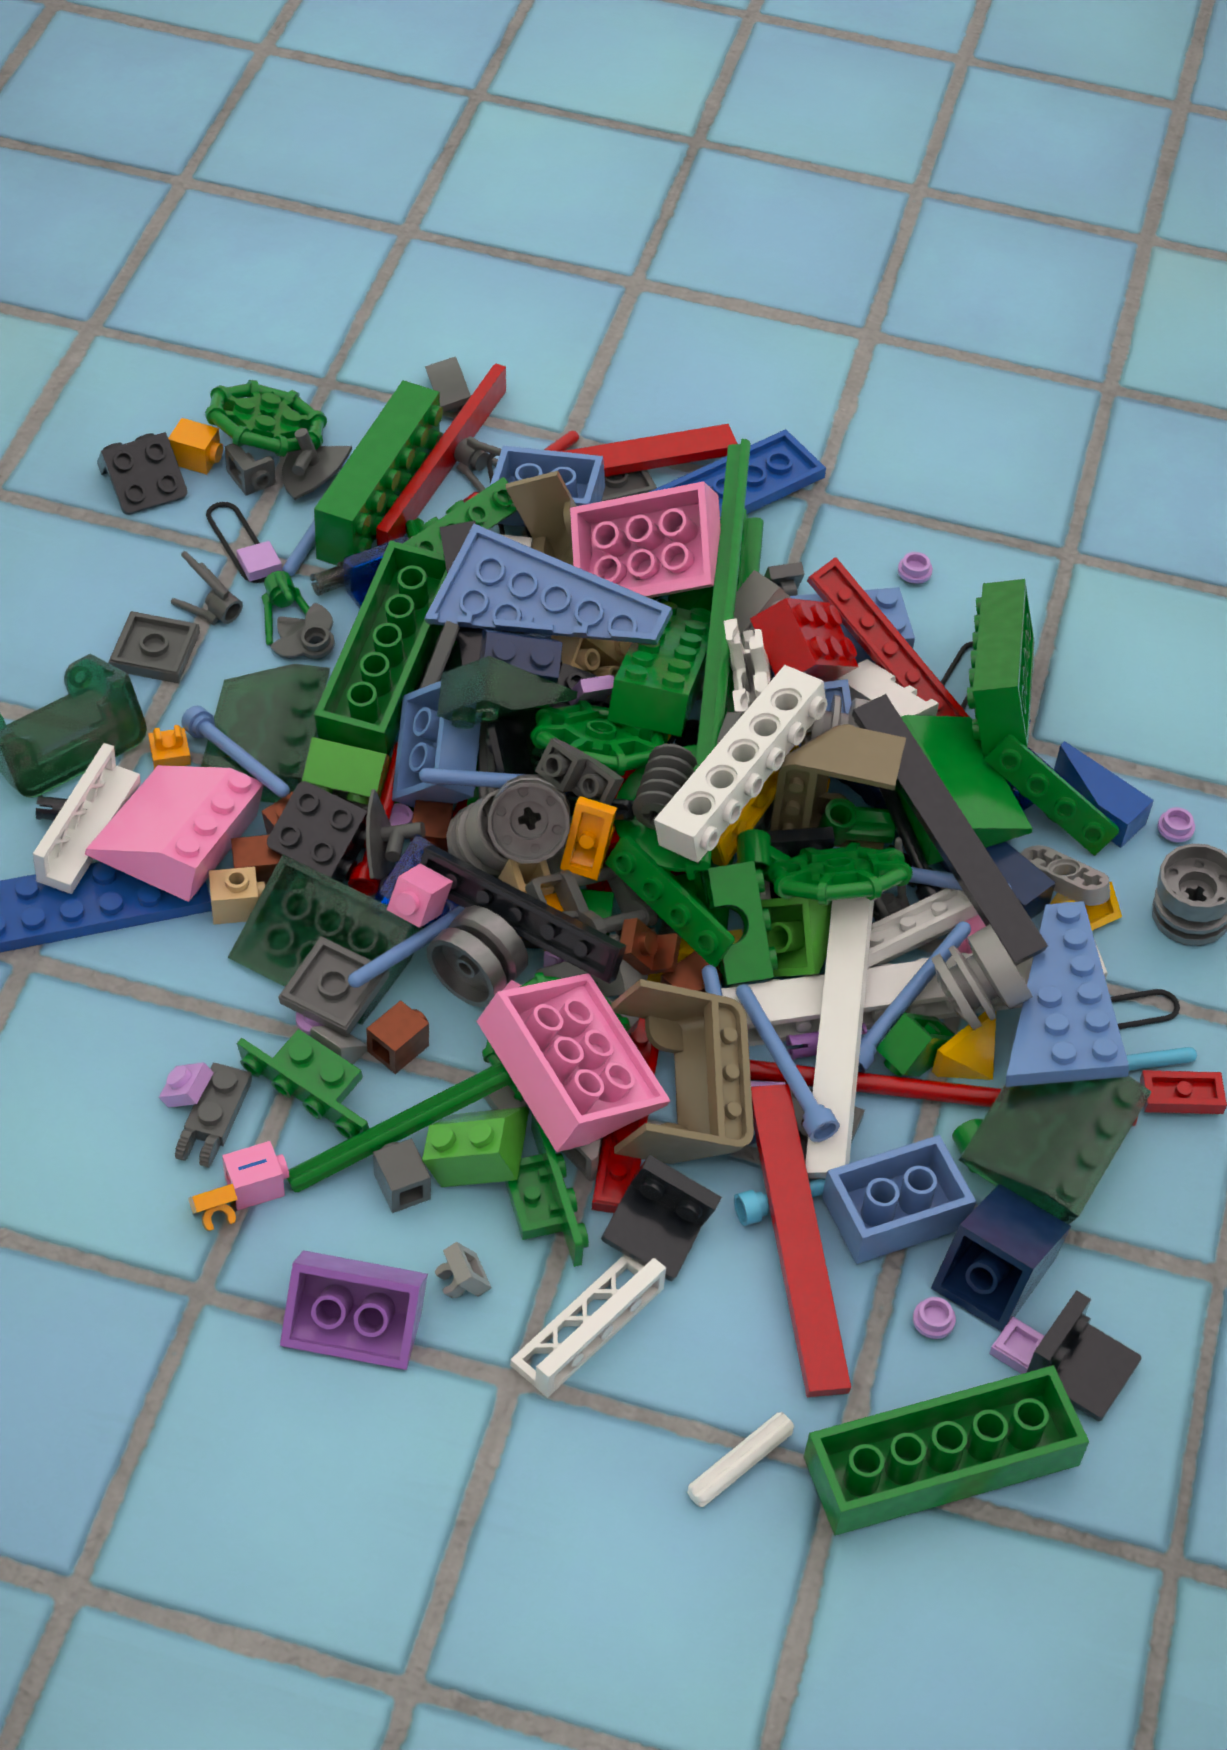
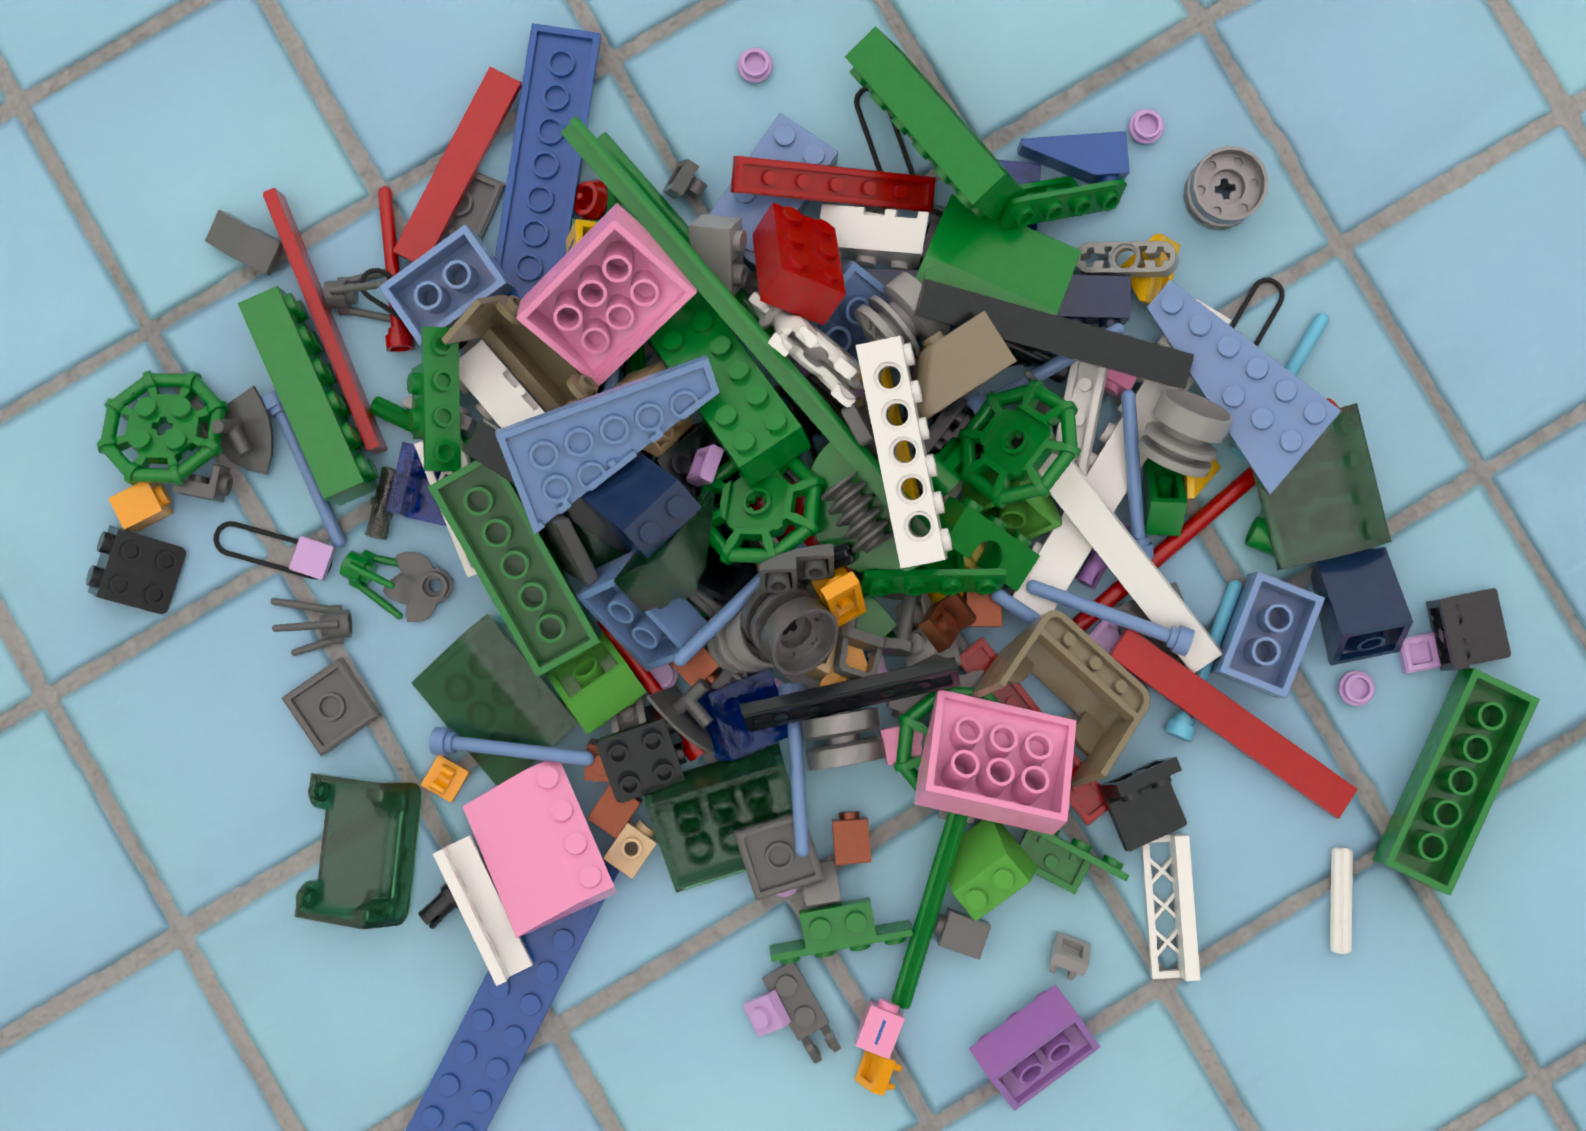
camera: 45 degrees left, 35 degrees up
(419, 895) = (773, 748): bright pink brick -> none
(1184, 1092) = (1348, 358): red plate -> none

